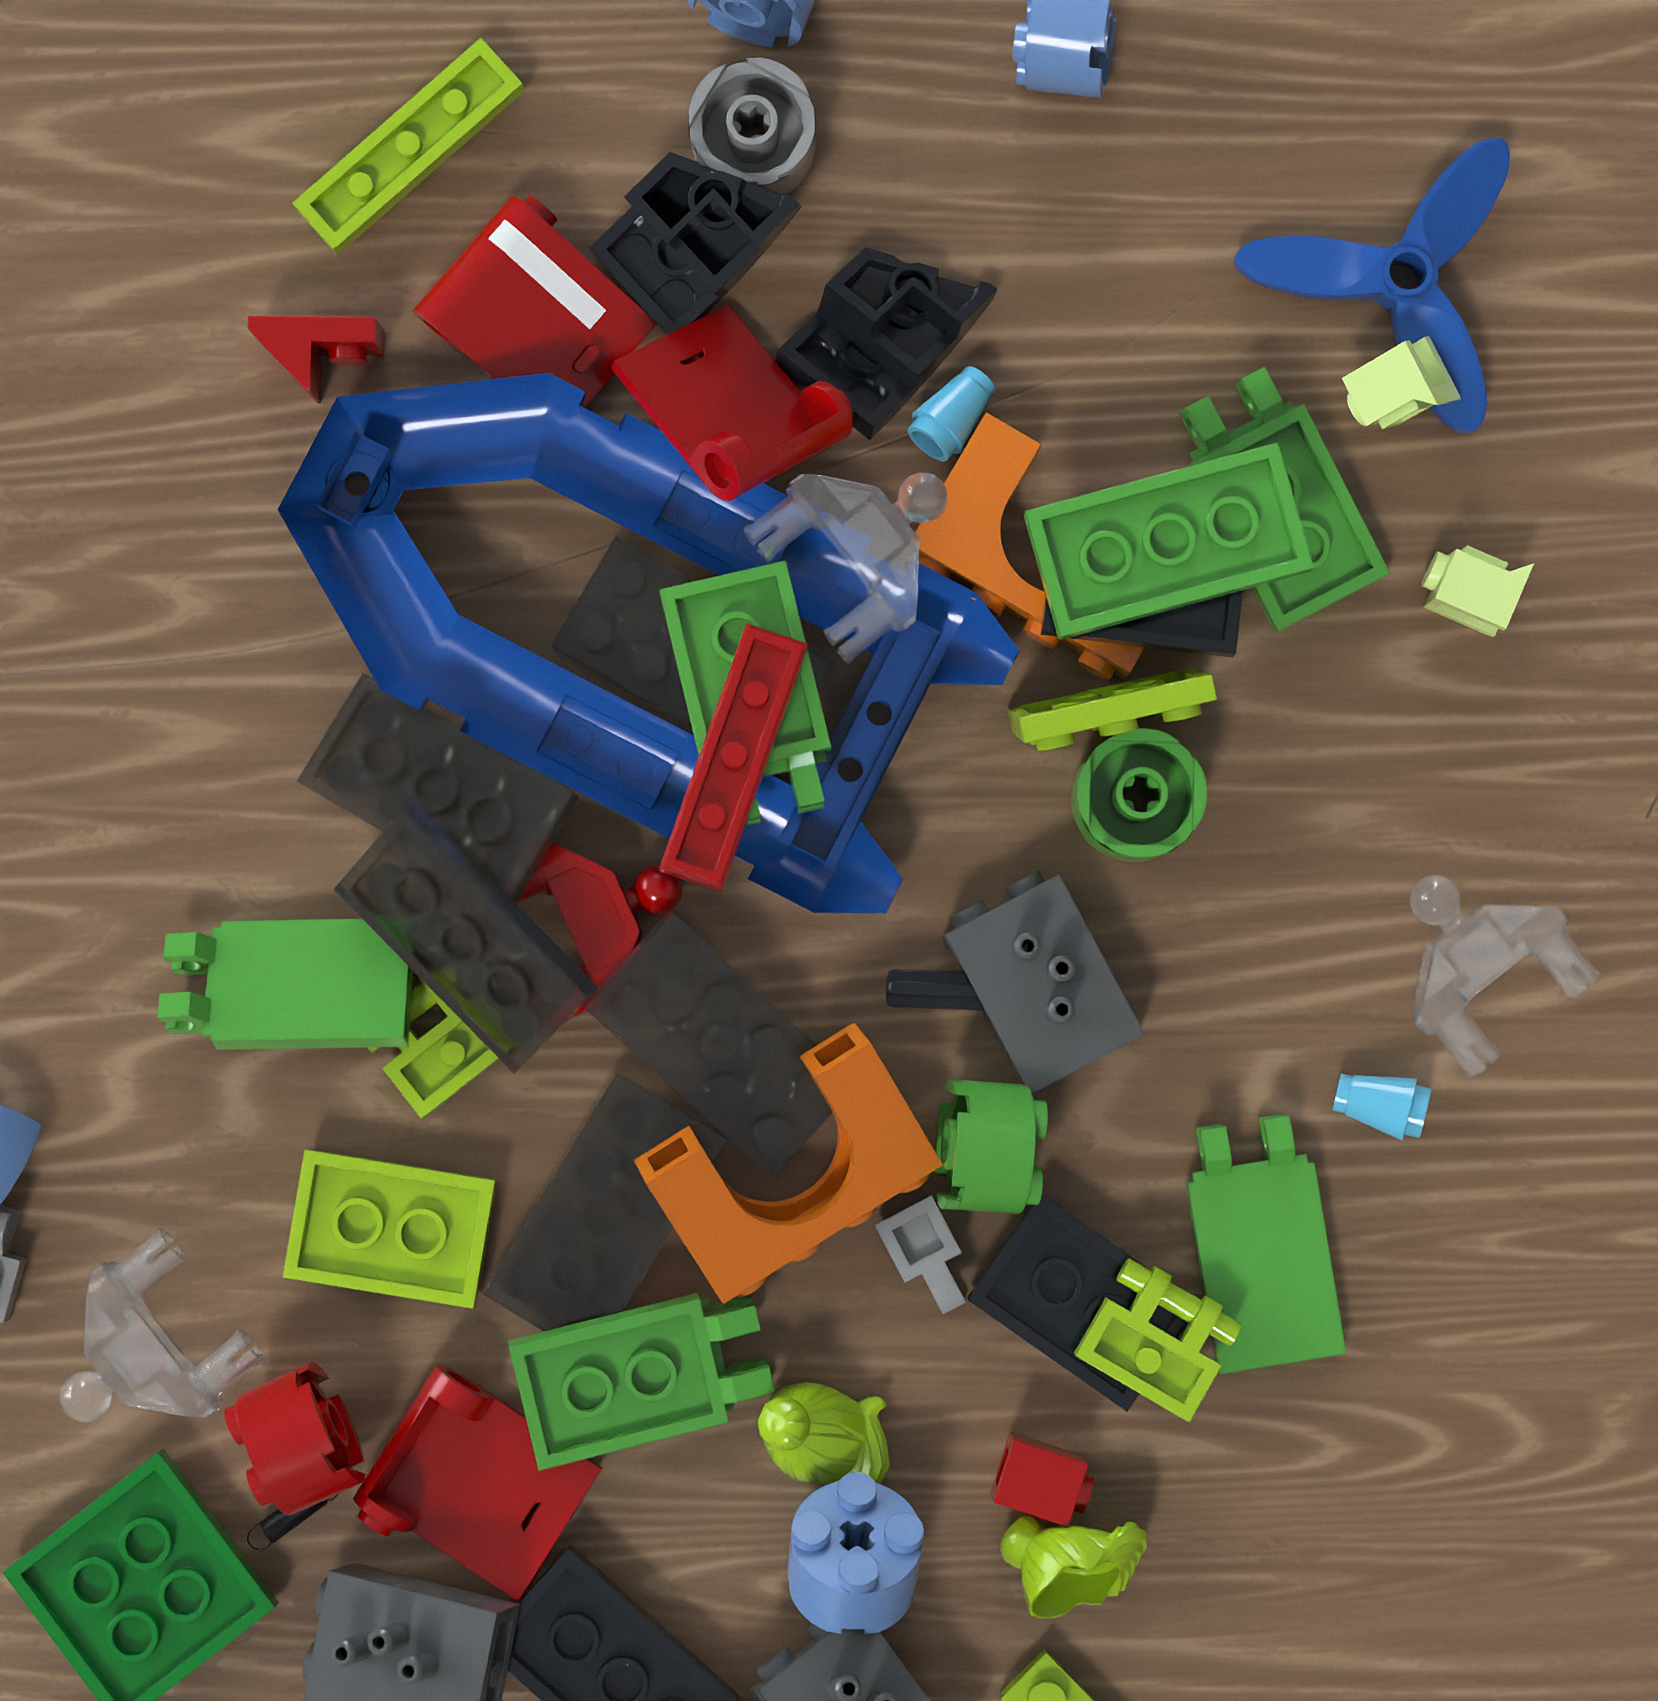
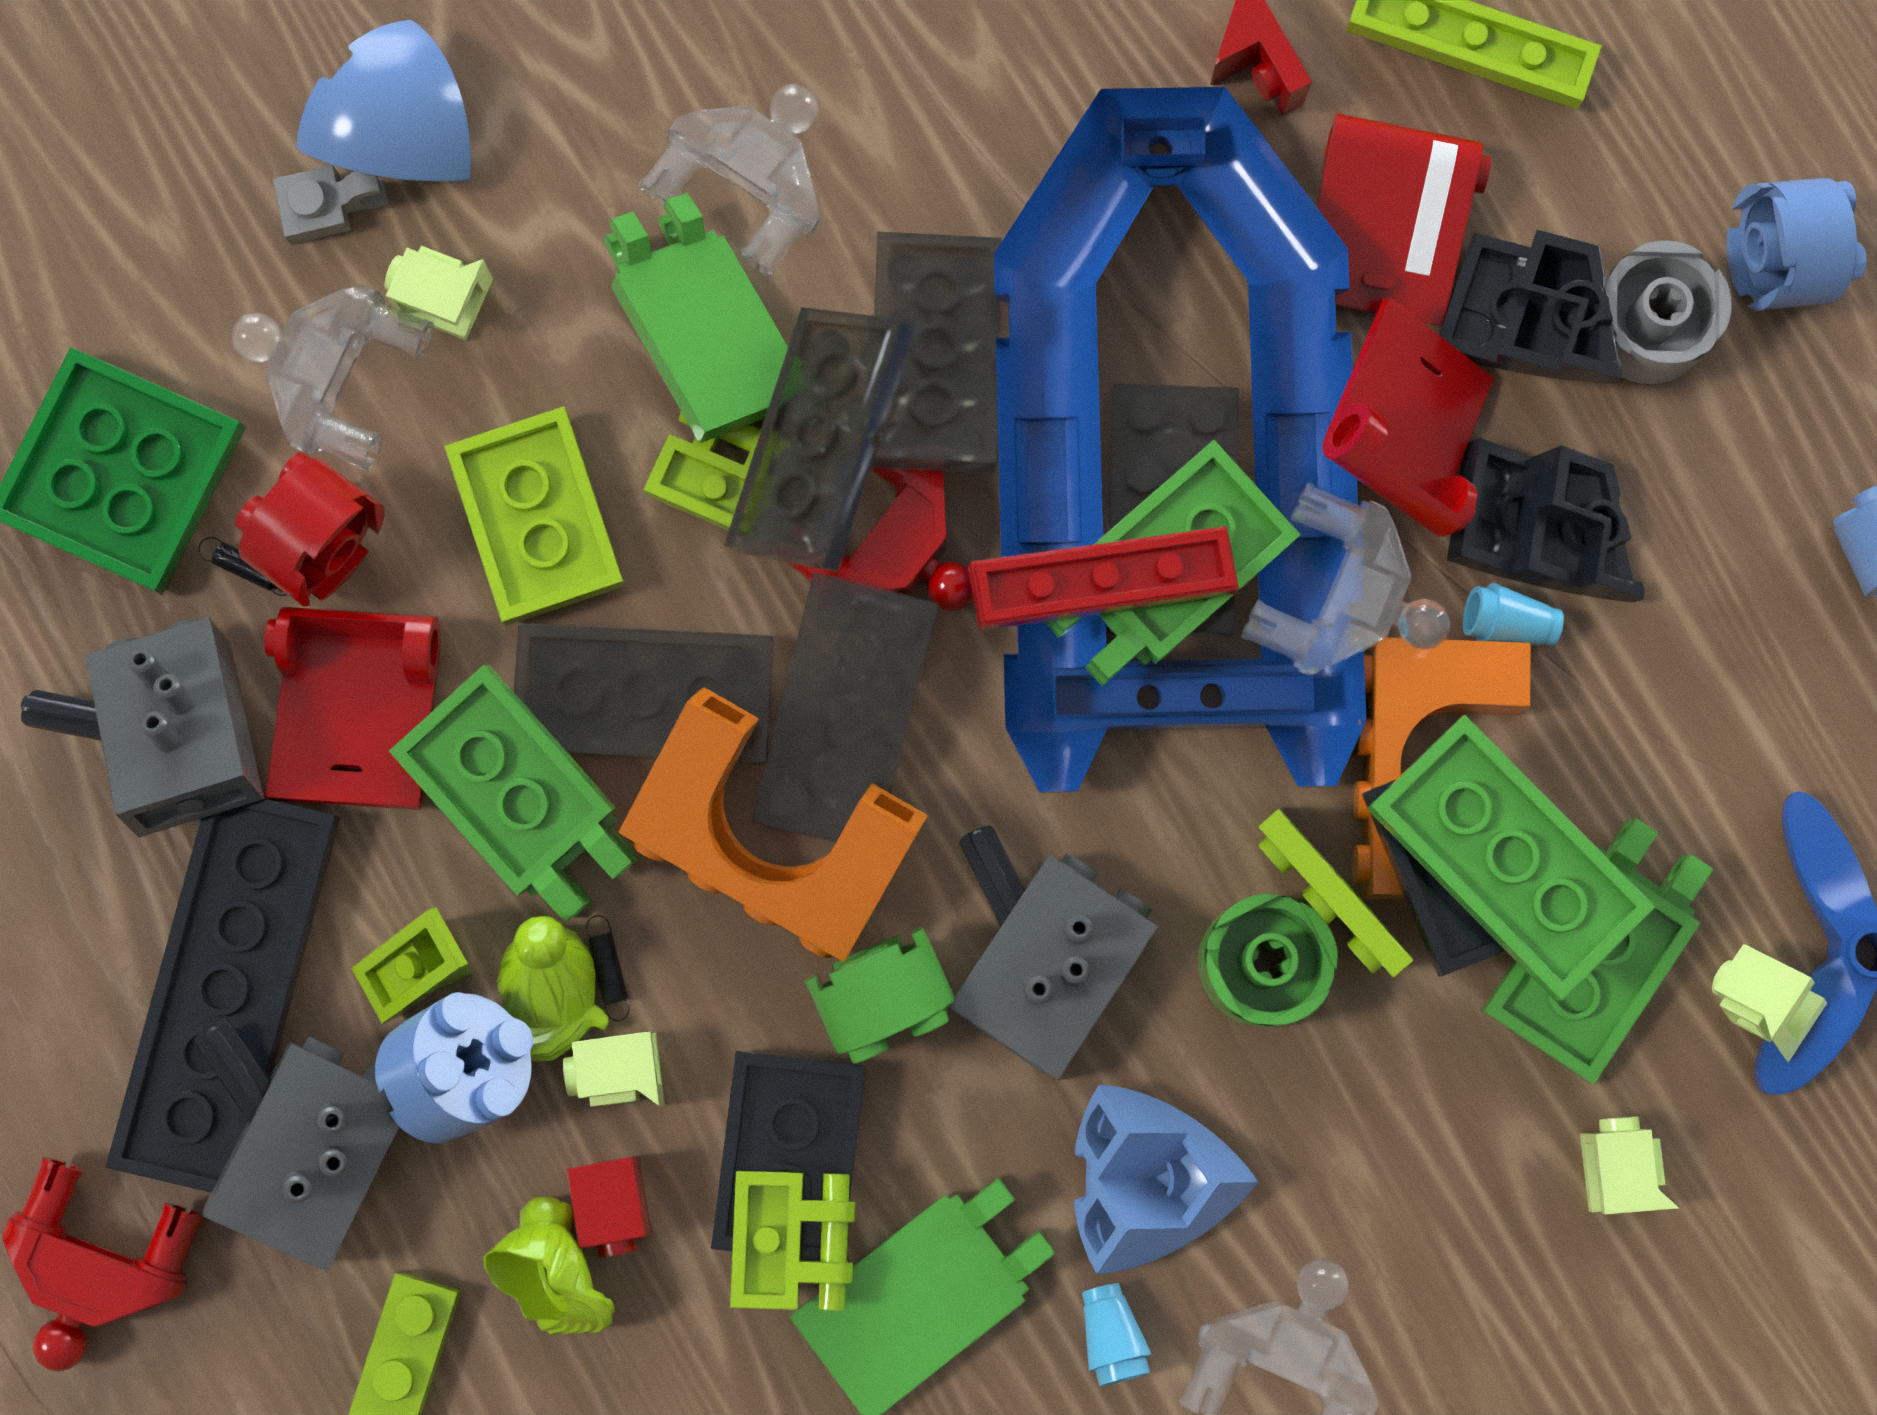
camera: 60 degrees right, 5 degrees down
(131, 1208) = (438, 289): none -> yellowish green window
(164, 853) = (754, 156): none -> clear connector
(741, 1549) = (411, 966): none -> lime slope
(832, 1374) = (607, 968): none -> black piece
(921, 1245) = (763, 984): light grey plate -> none
(927, 1414) = (615, 1069): none -> yellowish green window
(1268, 999) = (1150, 1179): none -> medium blue brick

